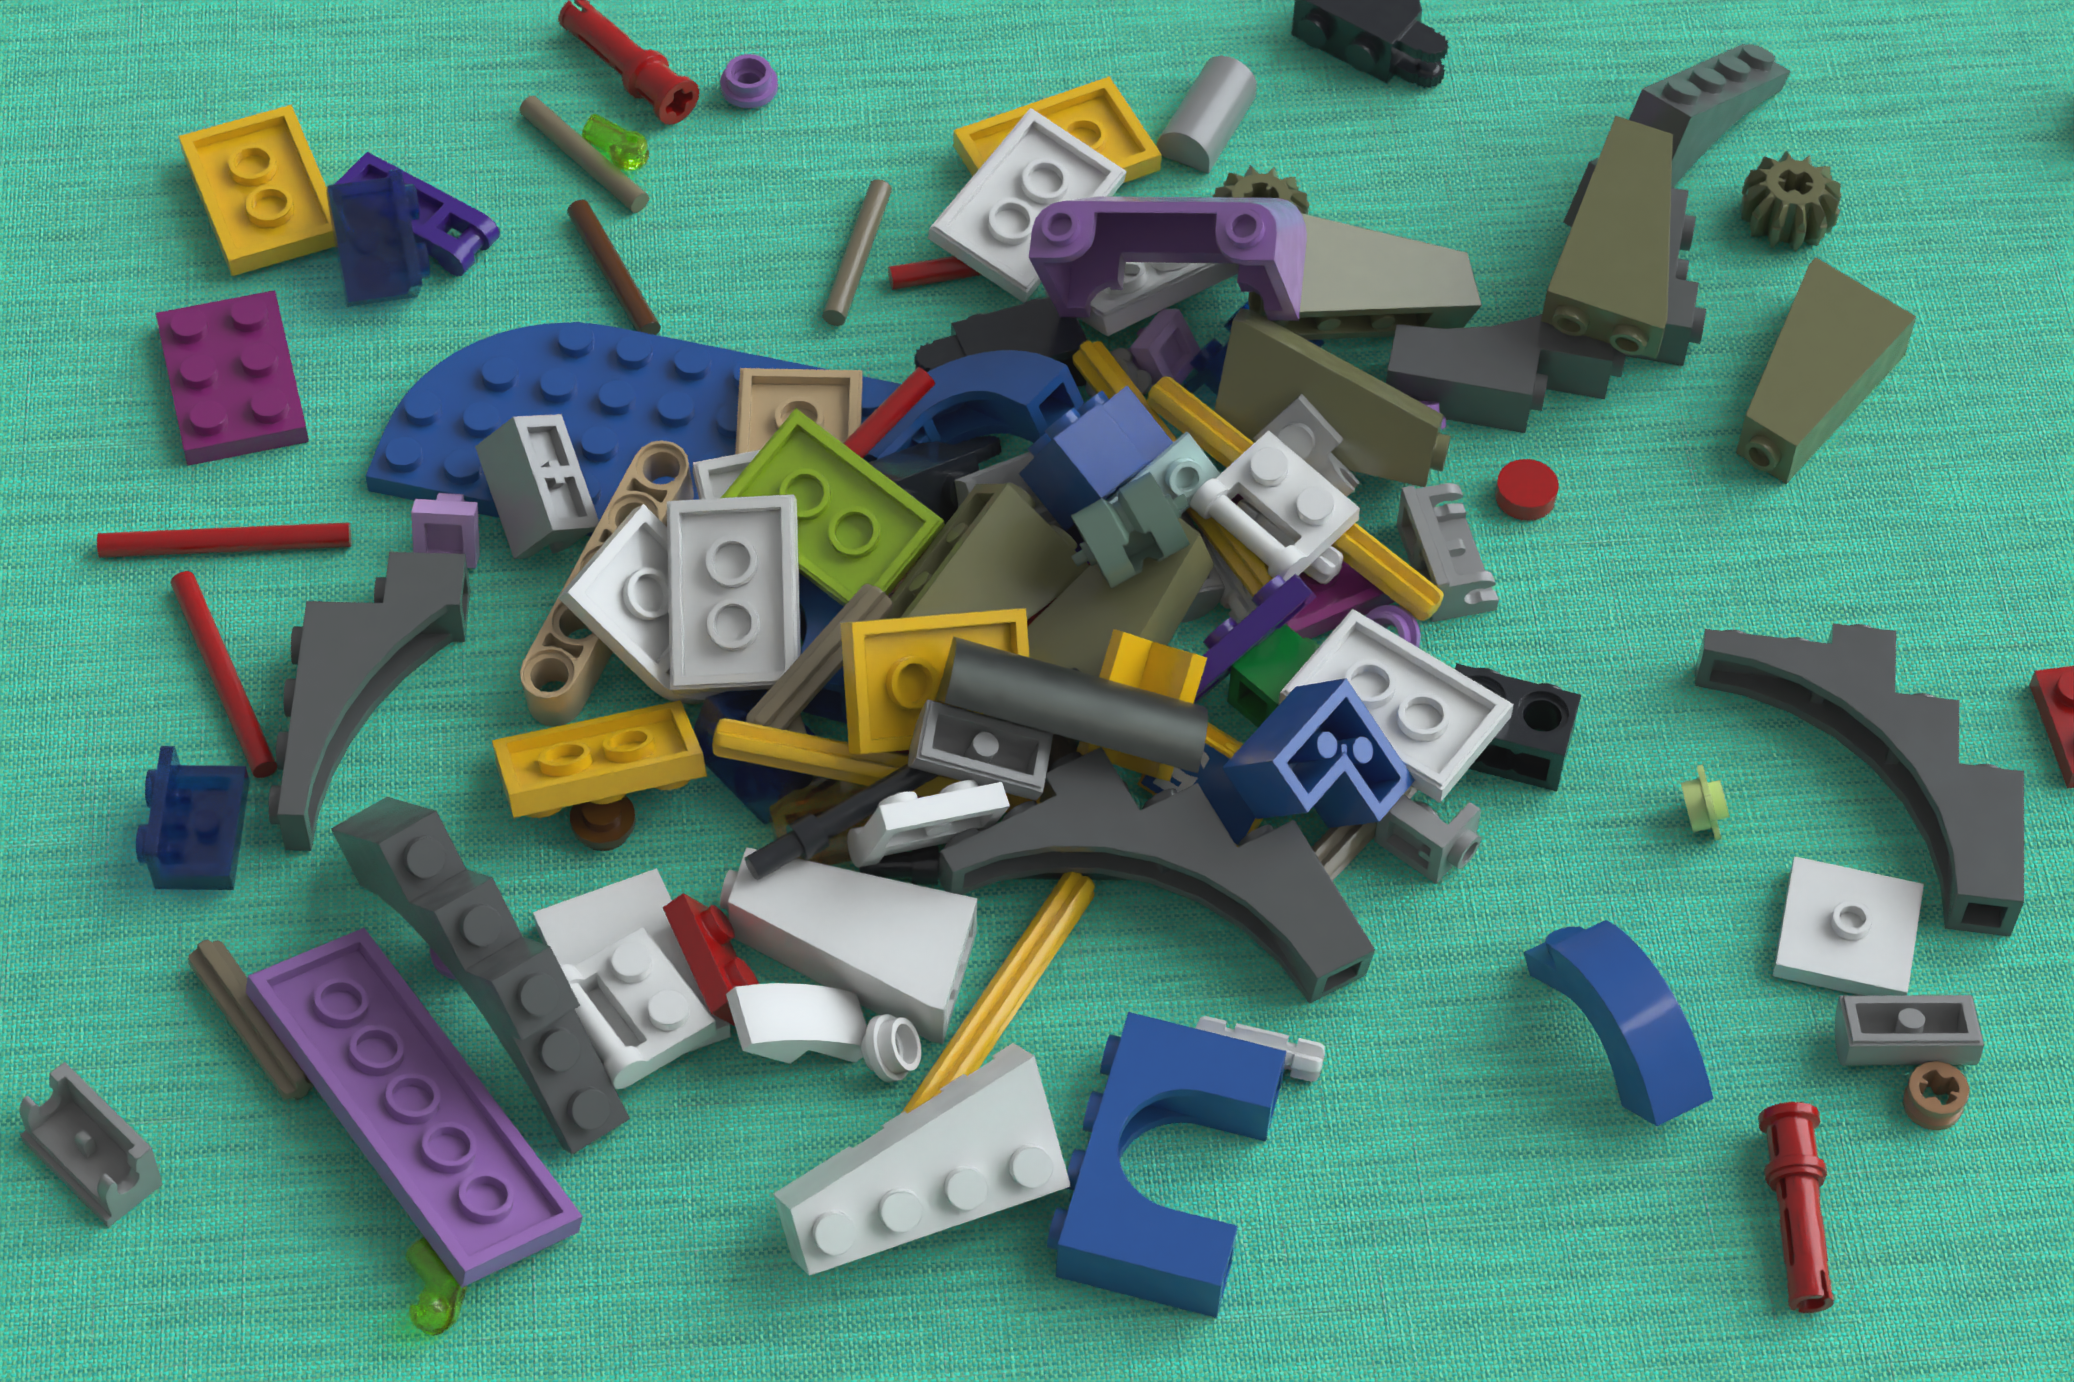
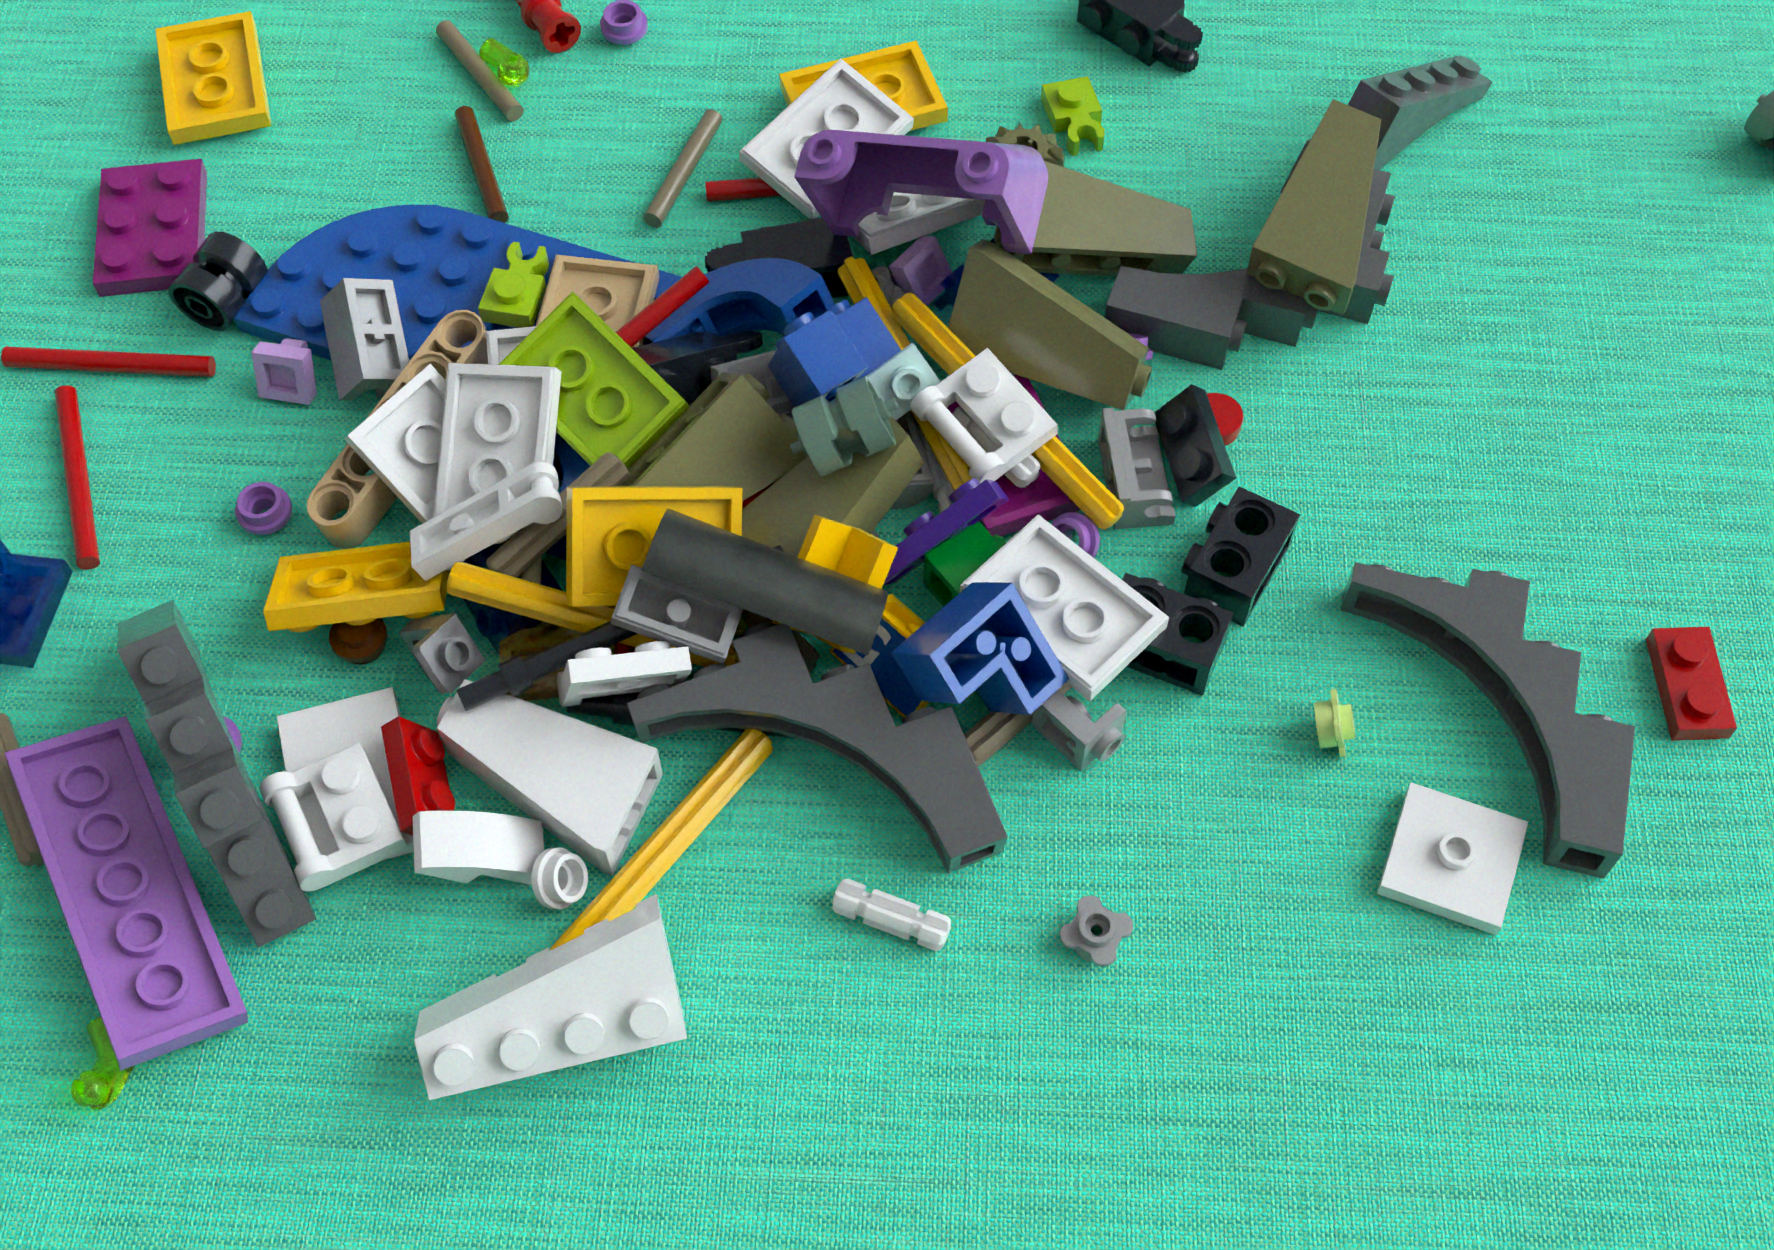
camera: 10 degrees right, 5 degrees up
(340, 434) = (217, 281): none -> black wheel
(347, 667) = (169, 484): dark grey arch -> none
(377, 239) = (286, 123): clear blue bracket -> none
(437, 217) = (330, 105): dark purple plate -> none
(452, 676) = (260, 497): none -> medium lavender plate
(702, 413) = (516, 293): none -> lime plate
(710, 819) = (442, 650): none -> flat silver bracket
(742, 670) = (486, 519): none -> white plate
(1156, 1079) = (785, 936): blue arch -> none
(1209, 114) = (995, 78): light grey brick -> none
(1308, 142) = (1074, 109): none -> lime plate
(1312, 439) = (1026, 360): light grey plate -> none
(1475, 1057) = (1093, 948): none -> light grey plate
(1508, 520) = (1194, 446): none -> black plate
(1584, 624) = (1243, 556): none -> black brick
(1633, 1015) = (1237, 926): blue arch -> none
(1790, 201) = (1479, 190): olive gear -> none
(1796, 1178) = (1373, 1103): red pin -> none
(1823, 366) = (1490, 335): olive slope -> none
(1907, 1030) = (1497, 966): light grey brick -> none
(1929, 1111) = (1510, 1048): medium nougat bush -> none

